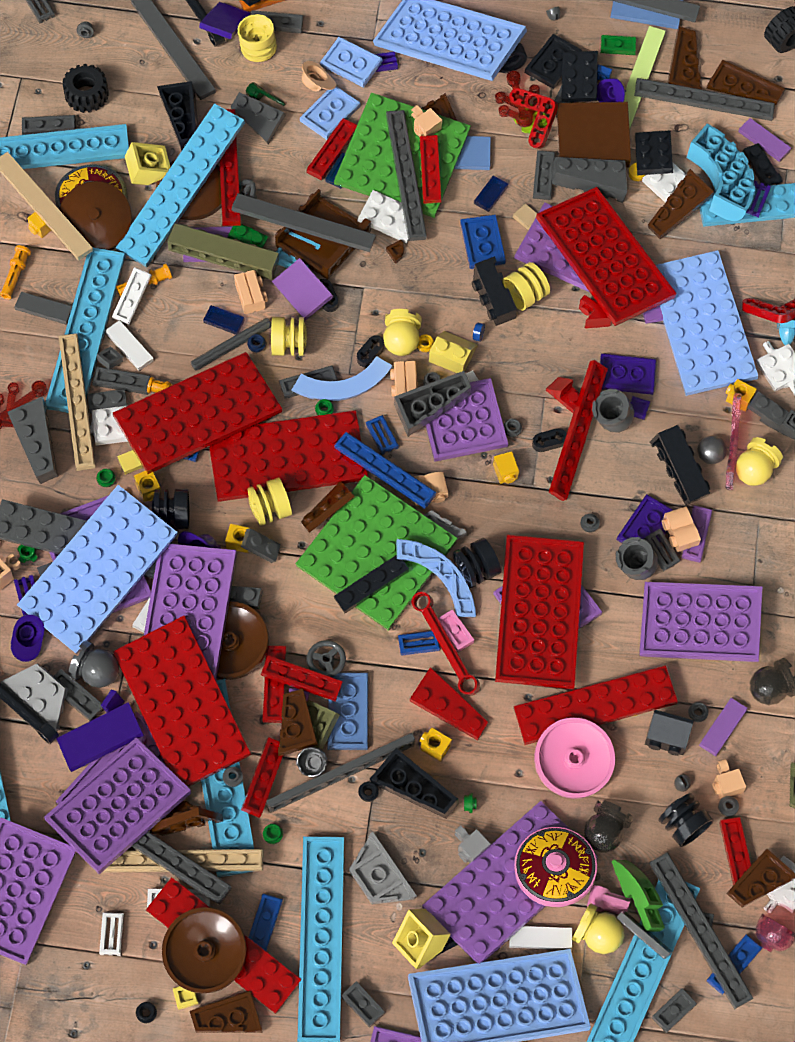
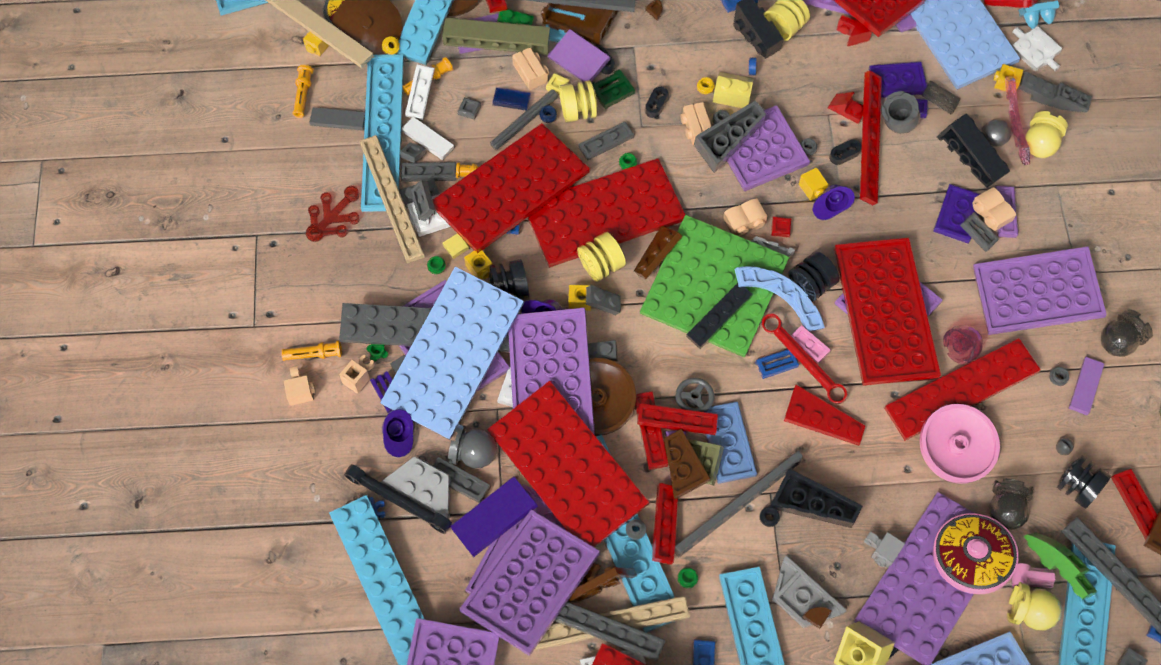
camera: 10 degrees left, 0 degrees up
(34, 433) = (357, 235): dark grey wedge -> none
(106, 409) = (422, 200): none -> dark grey plate
(108, 241) = (387, 49): none -> yellow plate
(112, 701) = (496, 479): dark purple tile -> none
(178, 322) = (469, 108): none -> dark grey tile
(274, 310) = (555, 81): none -> light yellow tile
(312, 762) = (708, 498): flat silver hair -> none
(328, 333) = (615, 92): none -> dark green plate
(345, 388) = (640, 141): light blue tile -> none
(385, 470) = (703, 207): blue tile -> none
(385, 895) = (817, 616): none -> reddish brown tile
(394, 445) = (692, 189): blue tile -> none
(402, 332) = (683, 78): light yellow tile -> none
(435, 752) = (828, 452): yellow brick -> none
(461, 505) = (781, 227): none -> red tile
(470, 802) = (871, 507): green plate -> none
(519, 490) = (833, 201): none -> dark purple piece
(542, 938) = (979, 626): white tile -> none
(589, 527) = (905, 224): dark grey plate -> none
(610, 660) = (963, 343): none -> clear pink cylinder
(637, 558) = (964, 243): dark grey tile -> none
(645, 936) = (1081, 603): tile -> none
(662, 403) = (940, 99): none -> clear smoke tile
(668, 733) = (1041, 401): slope -> none
(726, 811) = (1109, 459): dark grey plate -> none
(728, 782) = (1108, 437): light nougat brick -> none

